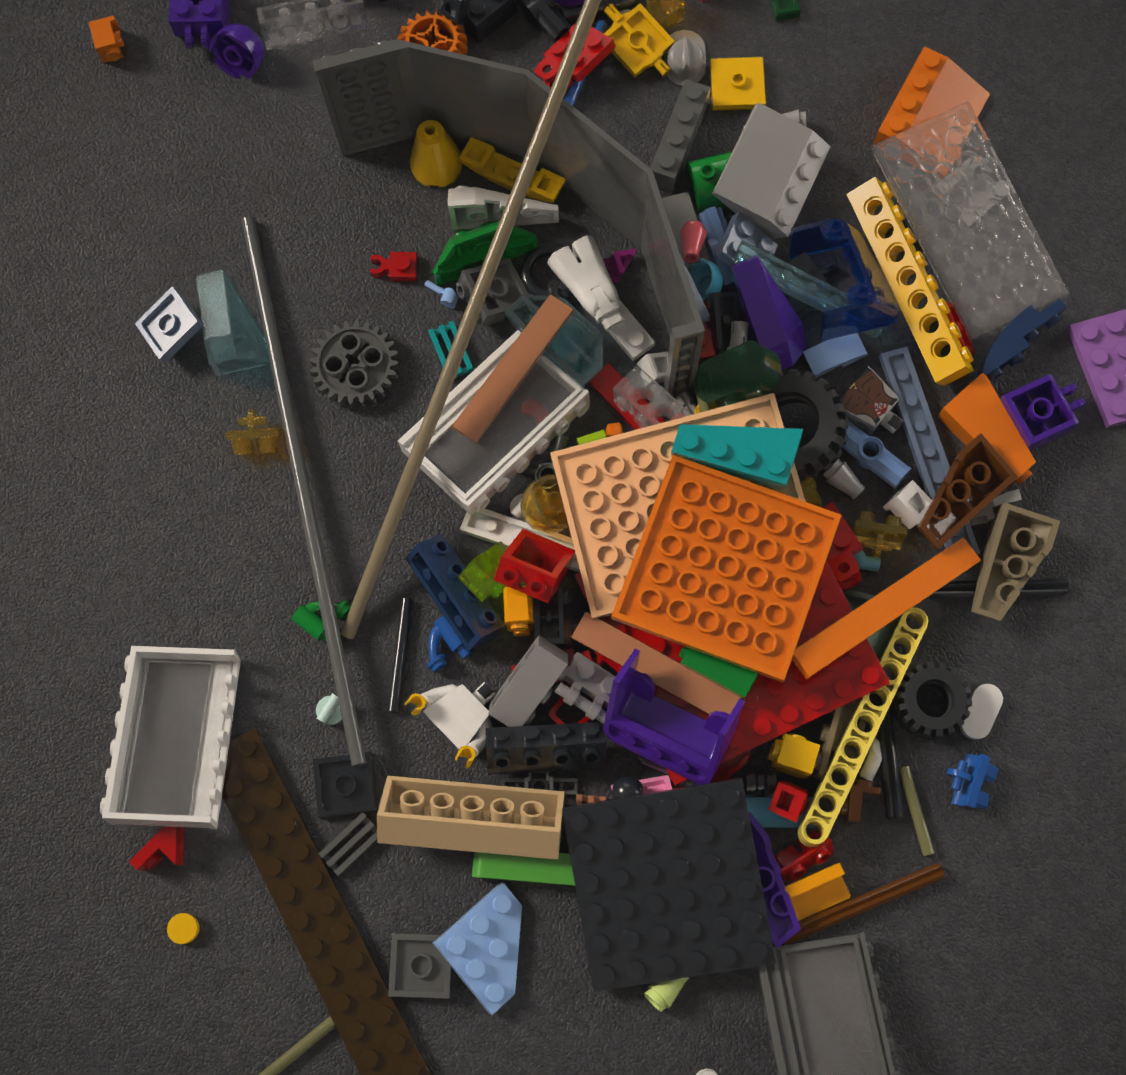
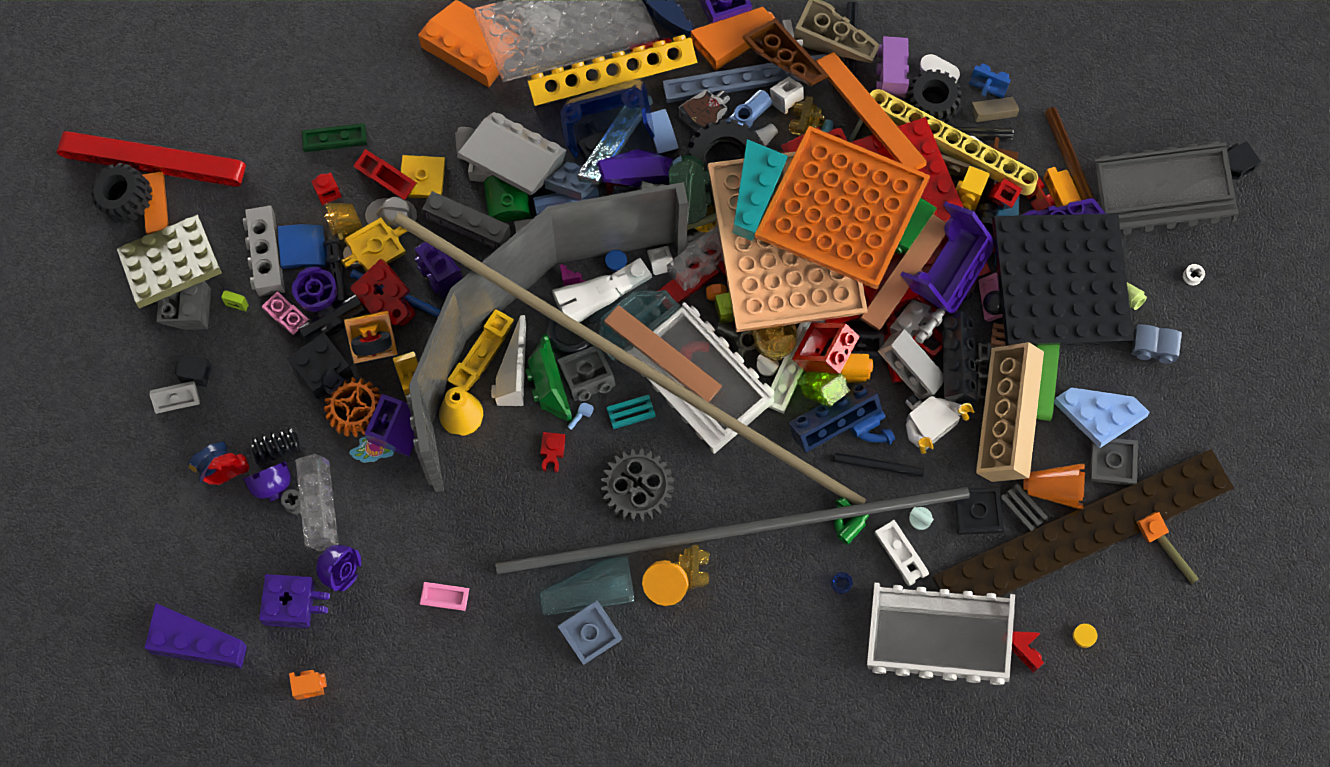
camera: 90 degrees left, 5 degrees down
(213, 168) = (444, 596): none -> bright pink tile
(230, 403) = (665, 583): none -> light orange tile
(252, 616) = (842, 576): none -> clear blue bush
(283, 686) = (901, 552): none -> white plate
(326, 1018) = (1152, 527): none -> orange plate
(377, 889) = (1058, 485): none -> orange cone
(515, 42) = (370, 337): none -> light orange plate
(594, 1026) = (1156, 343): none -> sand blue brick
(615, 104) = (438, 268): none -> dark purple hinge
(649, 315) = (615, 260): none -> blue tile
(731, 37) = (385, 174): none -> red slope
(916, 811) = (1008, 120): olive bar -> none
(931, 791) = (995, 109): none -> dark tan slope
(970, 643) = (893, 66): none -> medium lavender wedge

